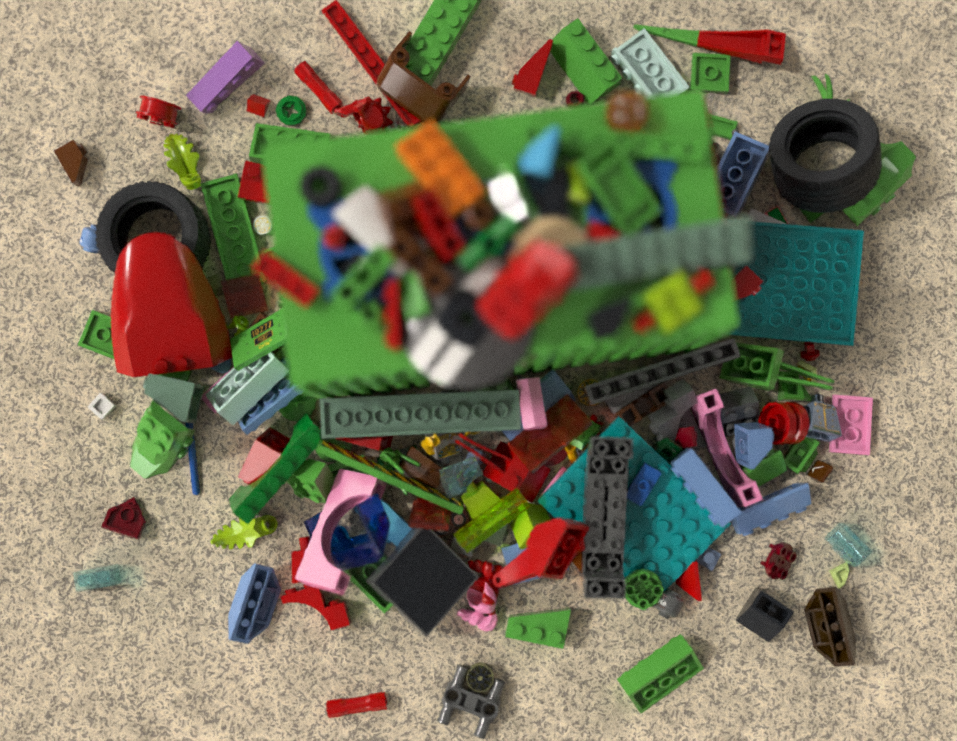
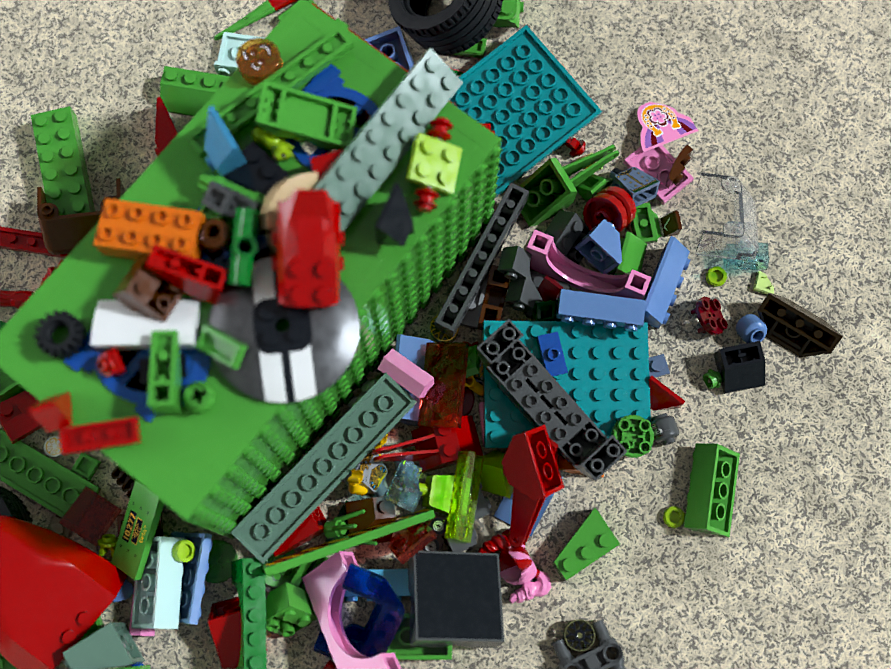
camera: 45 degrees left, 10 degrees down
(271, 236) = (53, 412): none -> red slope
(280, 379) = (183, 551): none -> lime tile
(391, 294) = (218, 380): red plate -> none
(425, 267) = (200, 314): reddish brown arch -> none
(617, 665) = (673, 517): none -> lime tile
(739, 603) = (715, 378): none -> bright green plate
(798, 597) = (751, 328): none -> medium blue head
(813, 537) = (716, 276): none -> lime tile
(856, 531) = (738, 237): none -> clear windscreen
(860, 439) = (675, 174): none -> reddish brown slope
(887, 395) = (662, 125): none -> sticker

